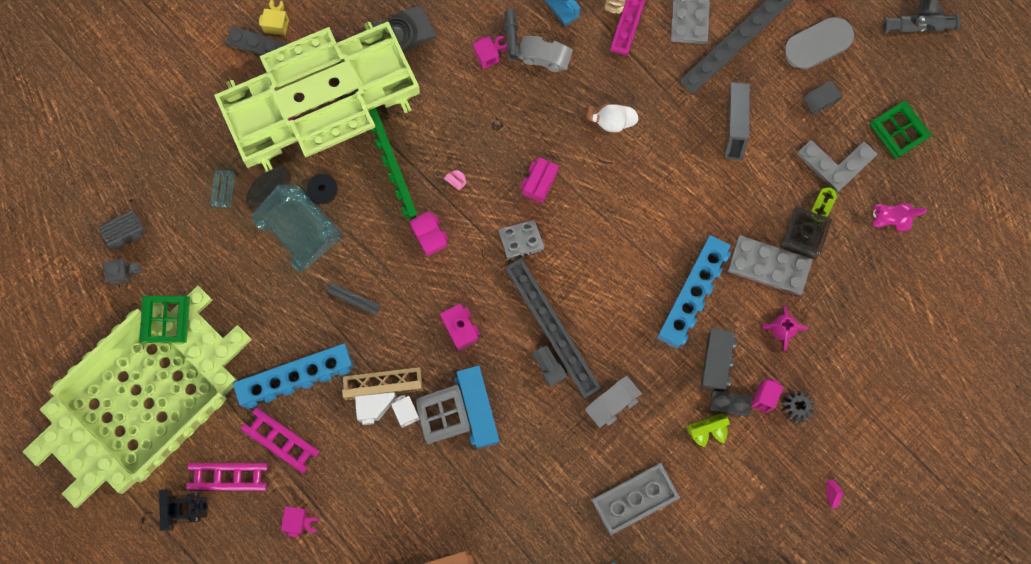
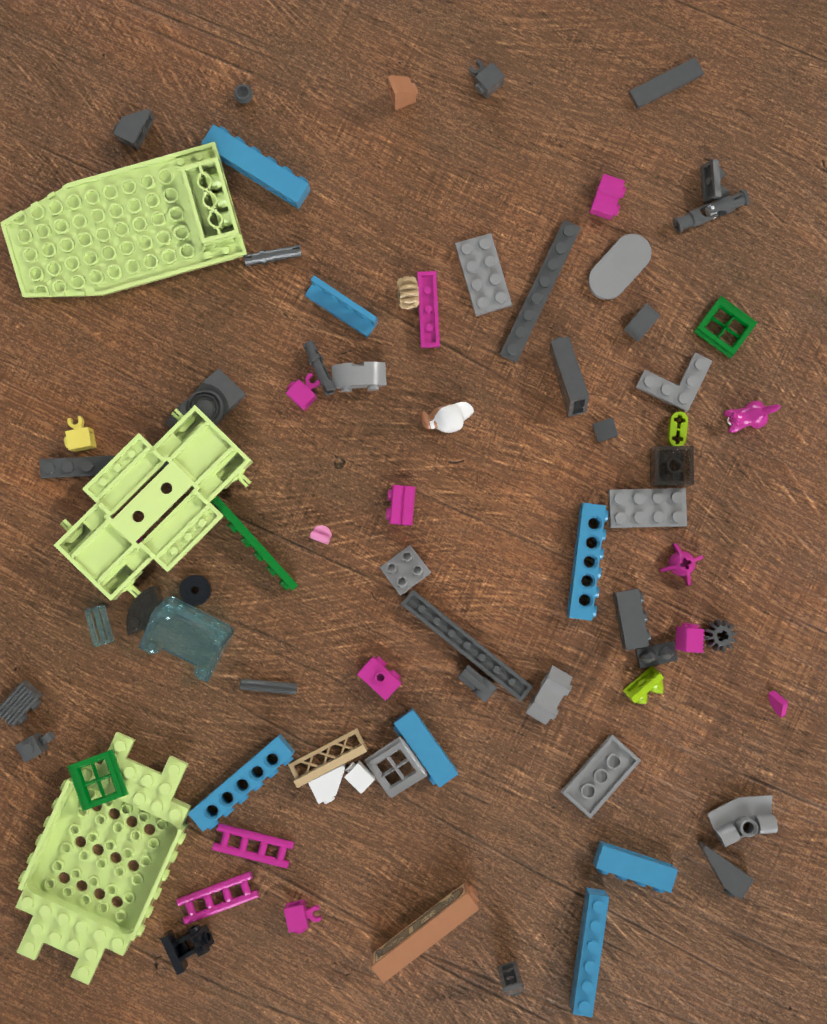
camera: 25 degrees left, 10 degrees up
(428, 233) = (315, 598): dark pink brick -> none
(754, 181) = (605, 430): none -> dark grey slope

